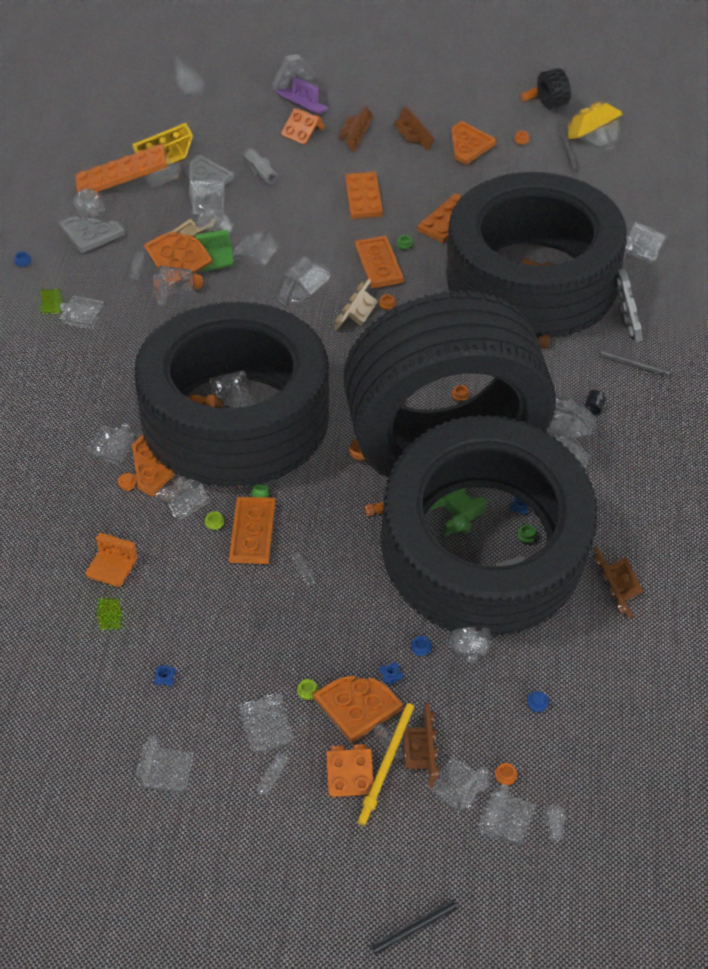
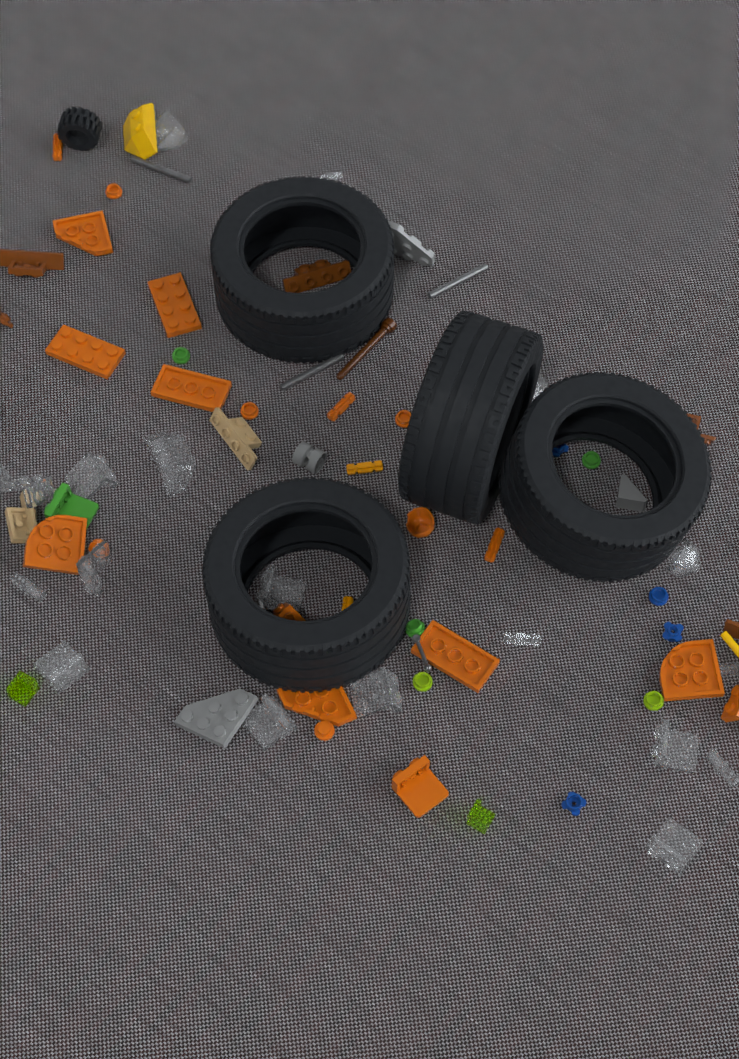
camera: 60 degrees left, 10 degrees up
(96, 411) = (217, 717): none -> light grey plate
(248, 494) = (416, 638): none -> flat silver hinge

